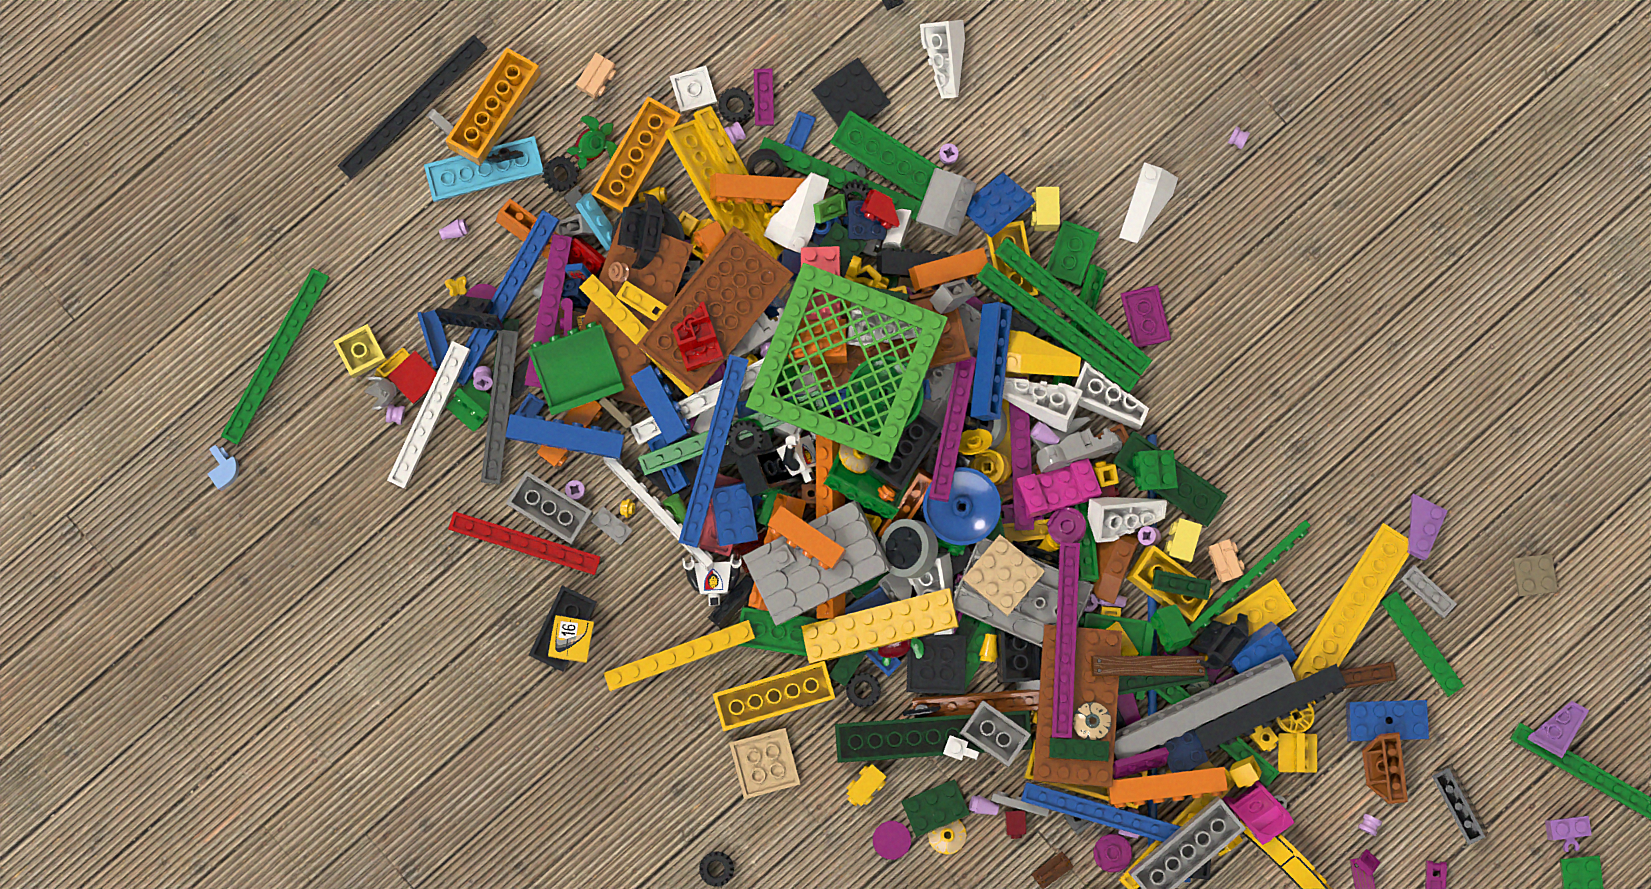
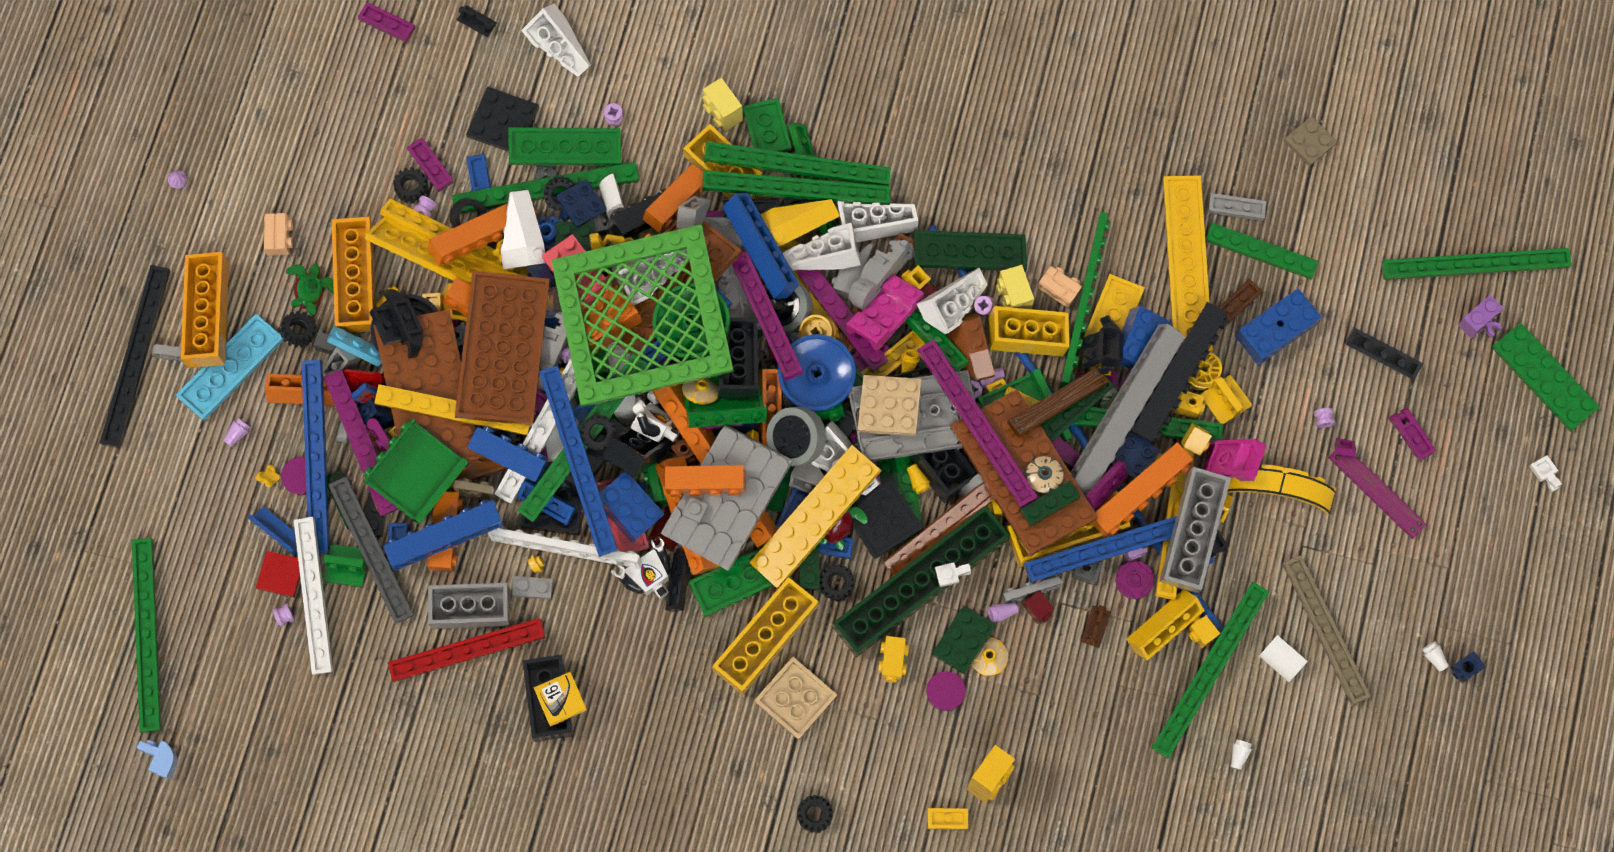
camera: 30 degrees left, 10 degrees down
(360, 351) = (218, 581): light yellow brick -> none
(383, 390) = (259, 602): light grey piece -> none
(389, 365) = (250, 582): yellow piece -> none
(470, 313) = (295, 487): black bracket -> none
(486, 375) = (336, 533): lavender wheel -> none
(504, 155) = (240, 343): black piece -> none
(577, 492) = (484, 578): lavender wheel -> none
(619, 272) = (400, 368): nougat wheel -> none
(640, 300) = (434, 380): yellow plate -> none
(676, 507) = (578, 533): bright green brick -> none
(679, 655) = (662, 656): yellow plate -> none
(693, 89) = (366, 194): white plate -> none
(697, 339) = (504, 379): red slope -> none
(829, 208) = (544, 212): bright green plate -> none
(881, 208) = (586, 183): red slope -> none
(886, 493) = (747, 402): orange plate -> none
(921, 710) = (897, 565): black piece -> none
(946, 202) = (637, 150): light grey slope -> none
(975, 441) = (792, 316): yellow dish -> none
(995, 733) = (971, 539): light grey brick -> none
(998, 204) = (680, 125): blue plate -> none
(1044, 434) = (843, 278): lavender cone -> none
(1067, 525) = (912, 335): magenta tile -> none
(1145, 316) = (860, 139): magenta tile -> none
(1150, 196) = (799, 47): white wedge -> none
(1155, 470) = (953, 249): green plate -> none
(1171, 628) = (1055, 360): green brick -> none
(1181, 584) = (1038, 322): dark green plate -> none
(1385, 768) = (1304, 361): dark orange wedge -> none
(1424, 526) = (1197, 157): medium lavender wing -> none
(1560, 730) = (1418, 244): medium lavender wing -> none

